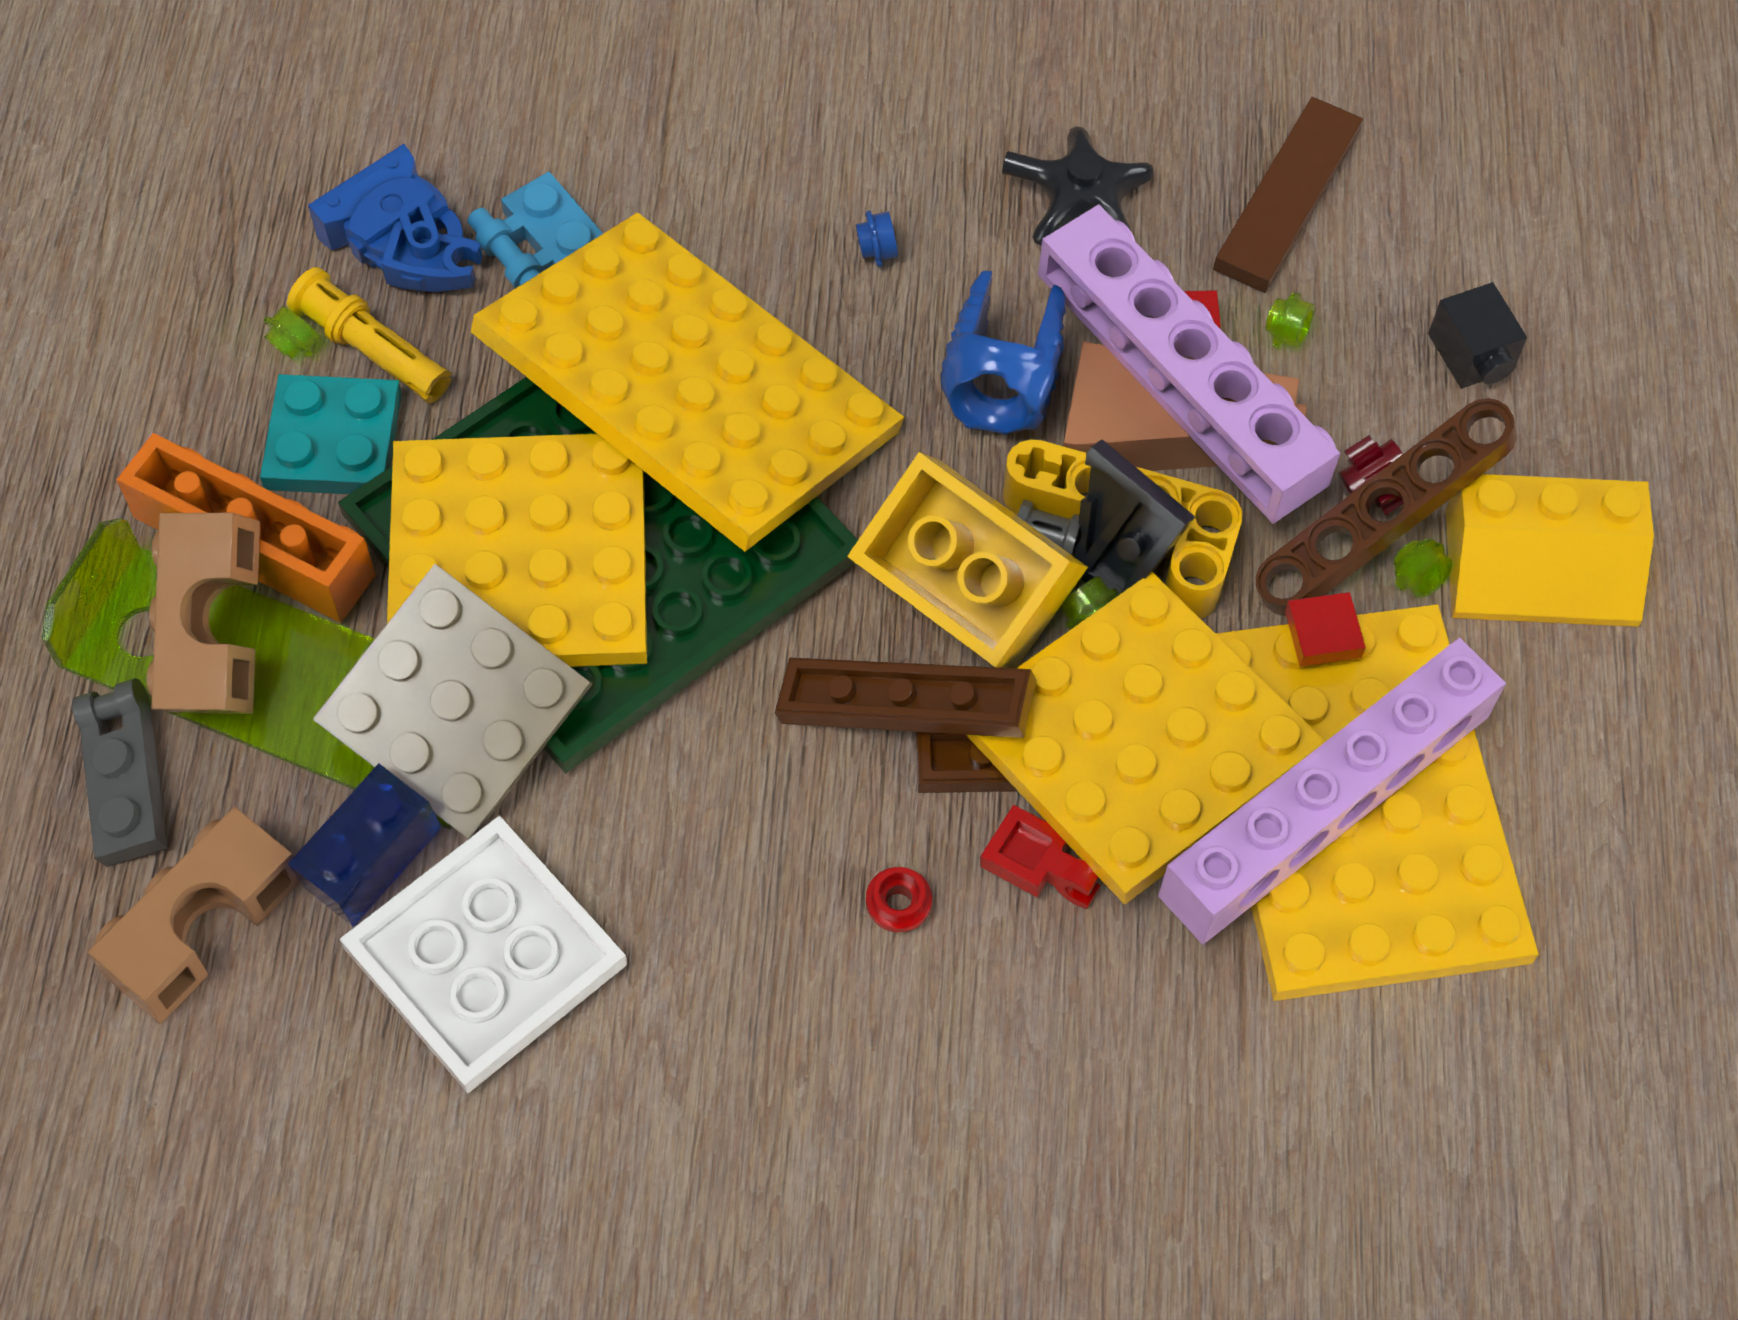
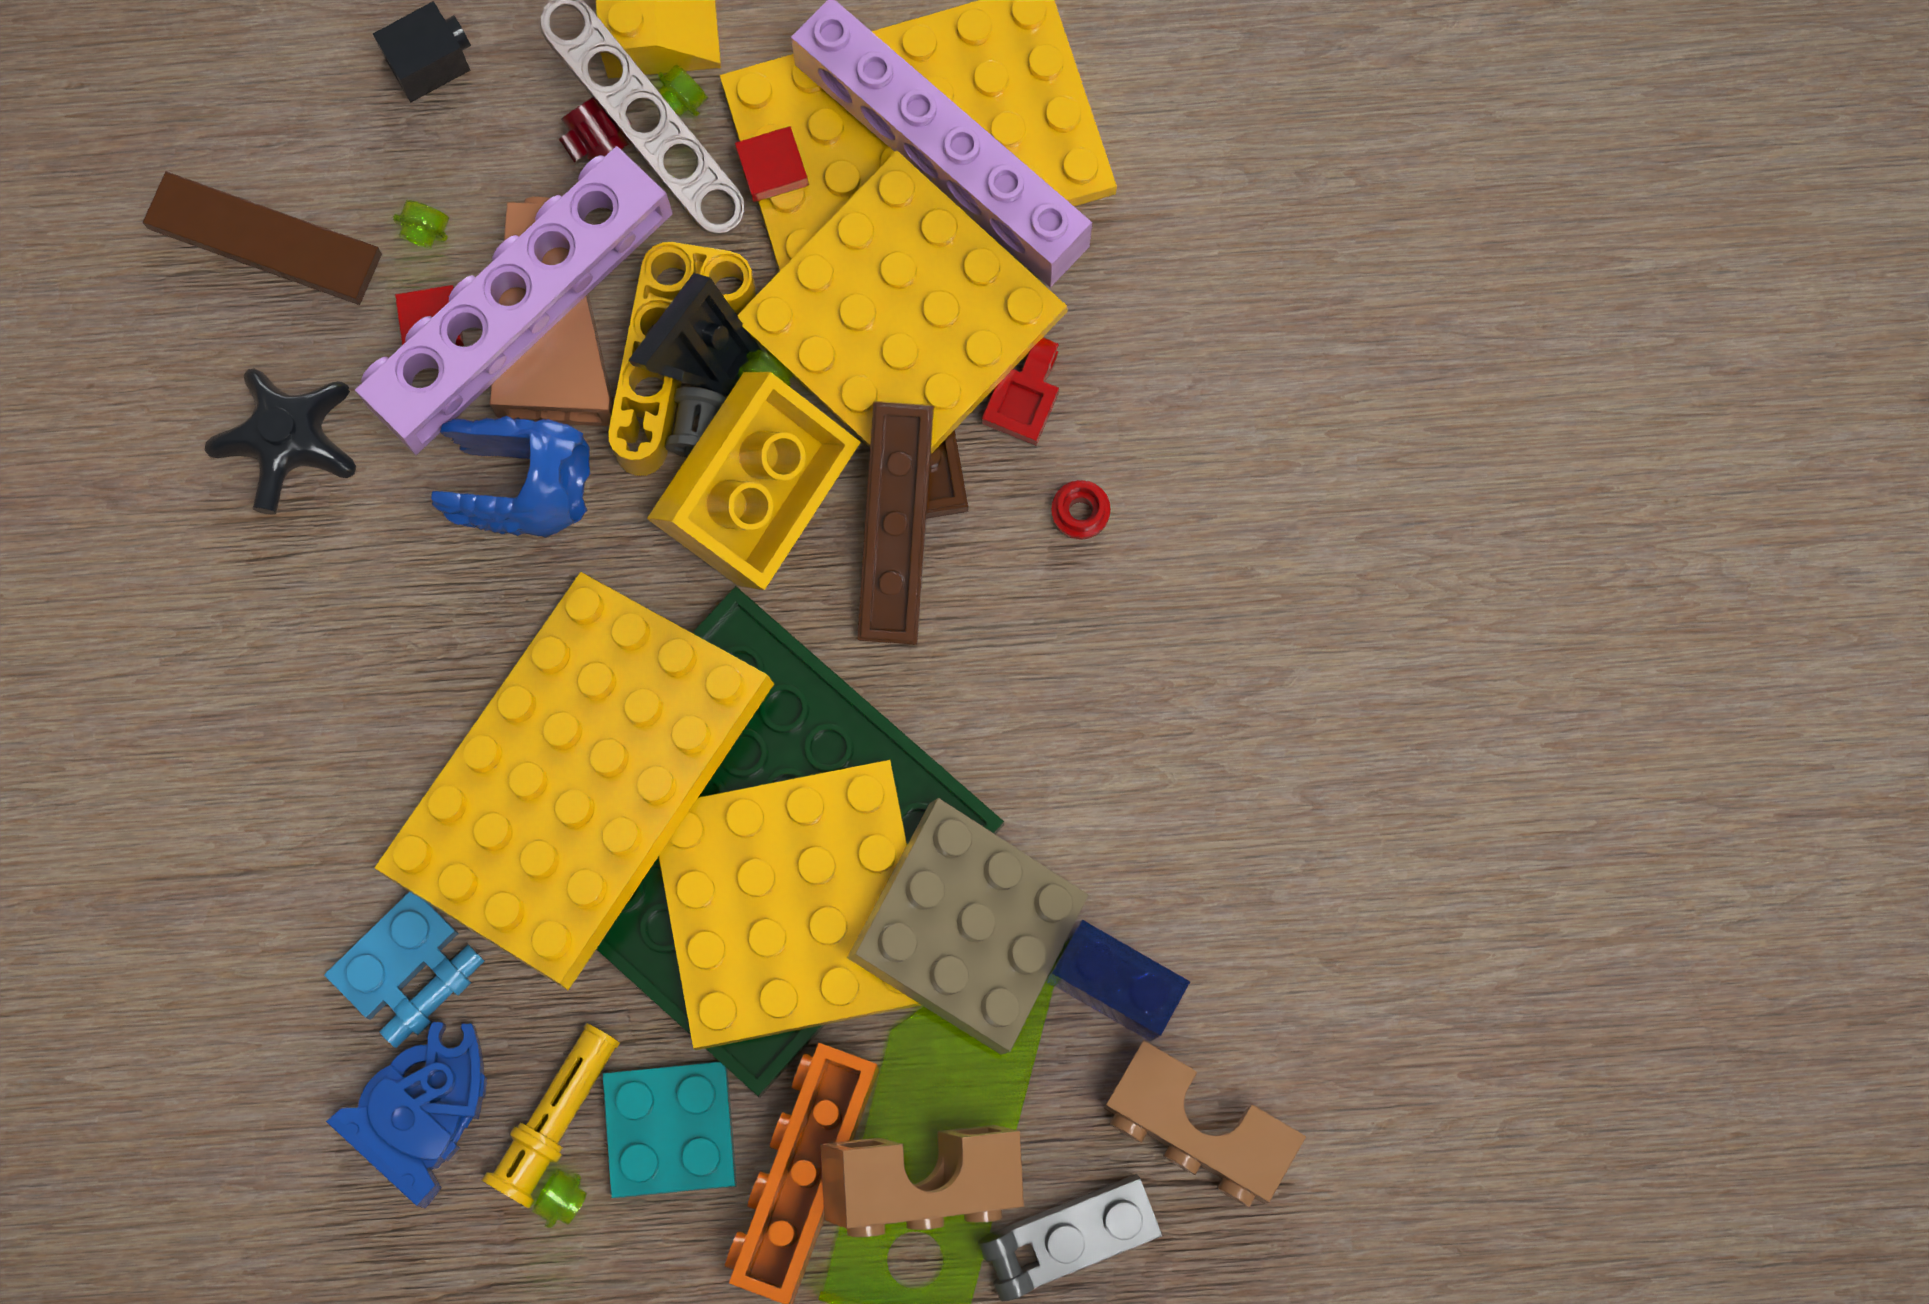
camera: 95 degrees left, 15 degrees up
(483, 953) = (1193, 858): white plate -> none
(877, 237) = (368, 627): blue plate -> none

